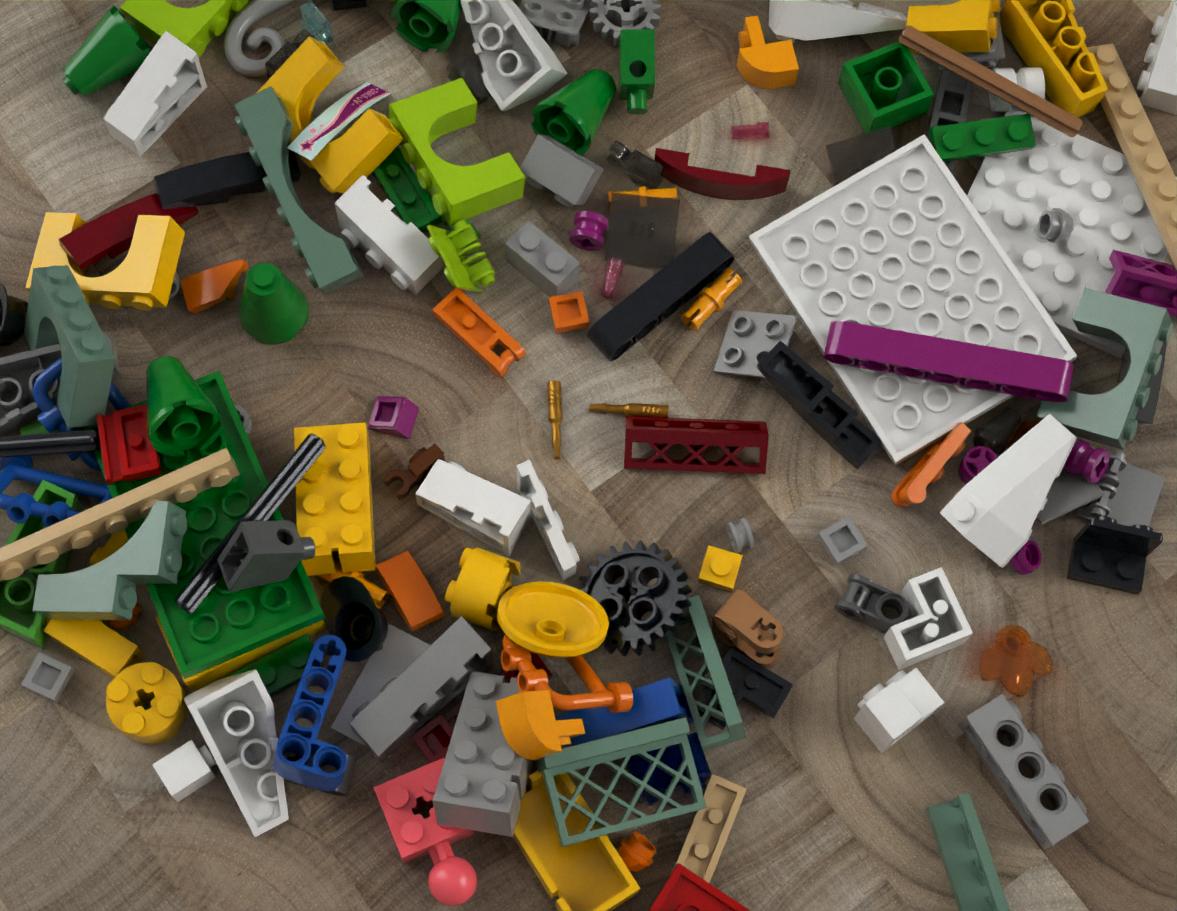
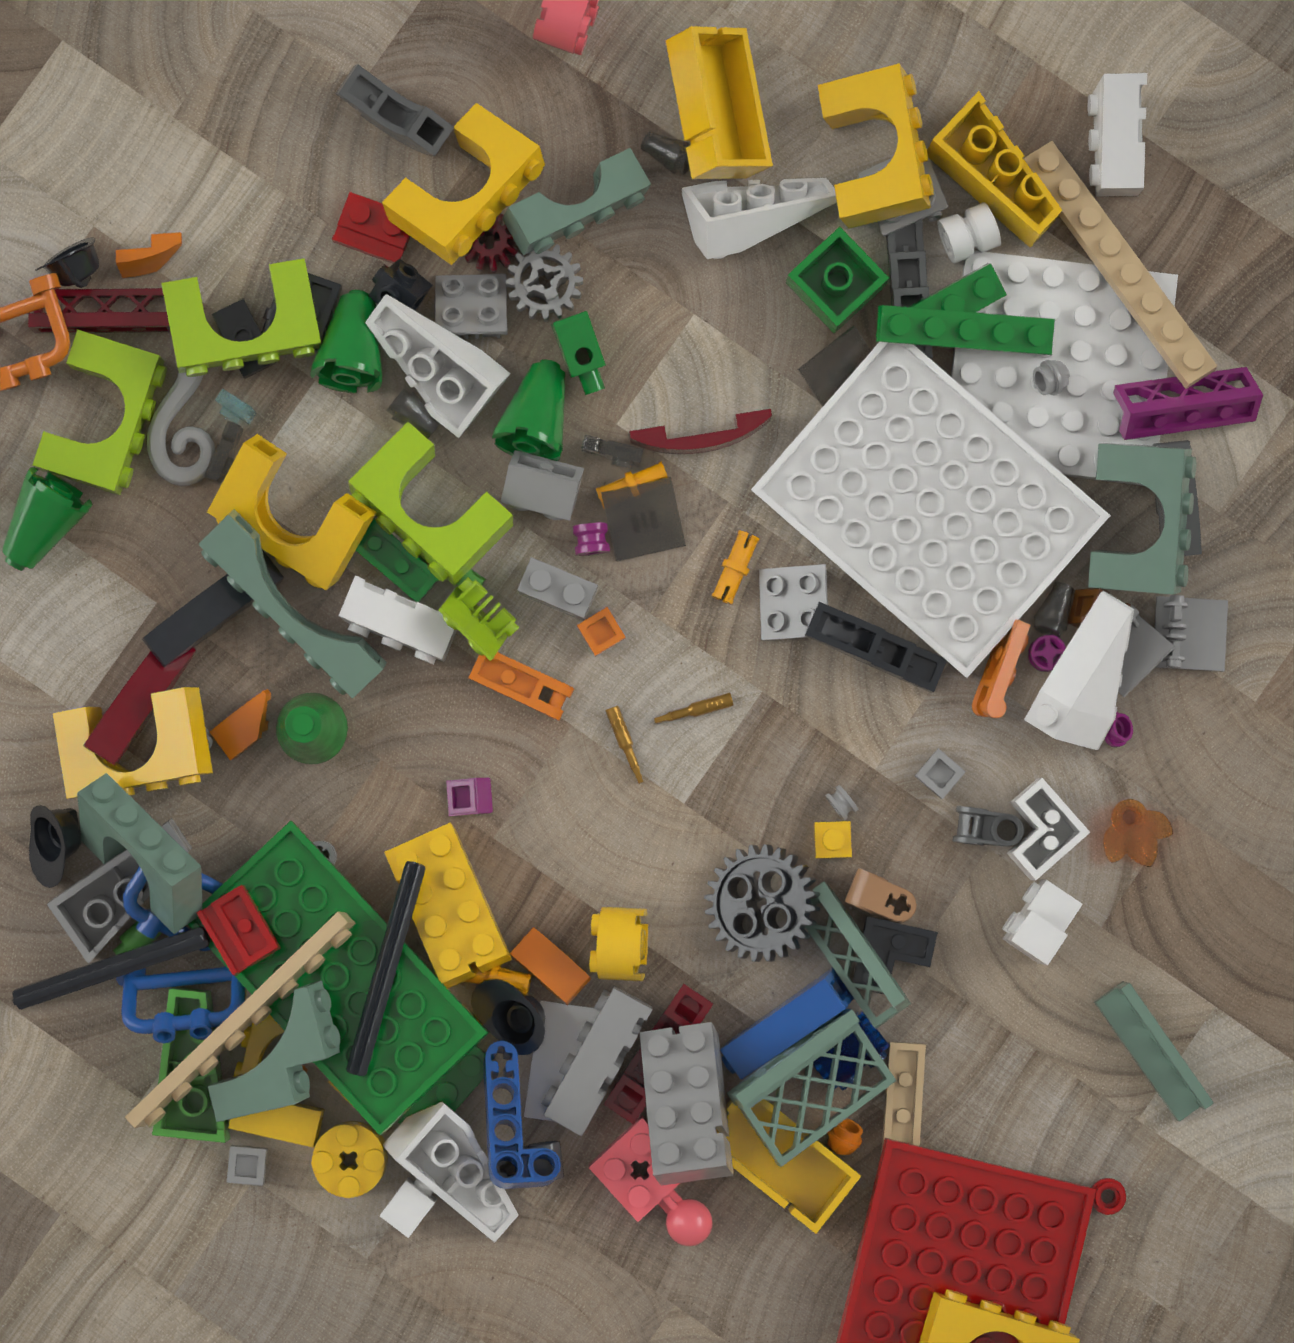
camera: 20 degrees left, 15 degrees up
(156, 94) = (107, 548): white wedge -> none
(178, 409) = (270, 879): green cone -> none
(263, 553) = (414, 1002): dark grey torso -> none
(336, 118) = (300, 509): sticker -> none
(417, 470) = (517, 838): reddish brown plate -> none
(475, 505) = (581, 862): white wedge -> none
(531, 725) = (718, 1076): light orange brick -> none
(547, 521) = (657, 855): white wing -> none
(552, 619) = (694, 946): yellow dish -> none
(613, 271) = (629, 570): clear pink piece -> none
(614, 696) = (709, 955): orange bar -> none
(660, 296) = (685, 583): black beam -> none
(696, 432) = (768, 717): dark red fence -> none
(759, 130) = (723, 365): clear pink piece -> none
(765, 64) = (703, 292): light orange brick -> none
(949, 361) = (988, 565): magenta beam -> none
(989, 157) = (965, 330): none -> green plate
(990, 81) = (941, 245): medium nougat axle -> none
(1023, 792) = (1224, 966): light grey brick -> none
(1087, 461) = (1150, 620): magenta wheel -> none
(1112, 554) = (1197, 705): black bracket -> none

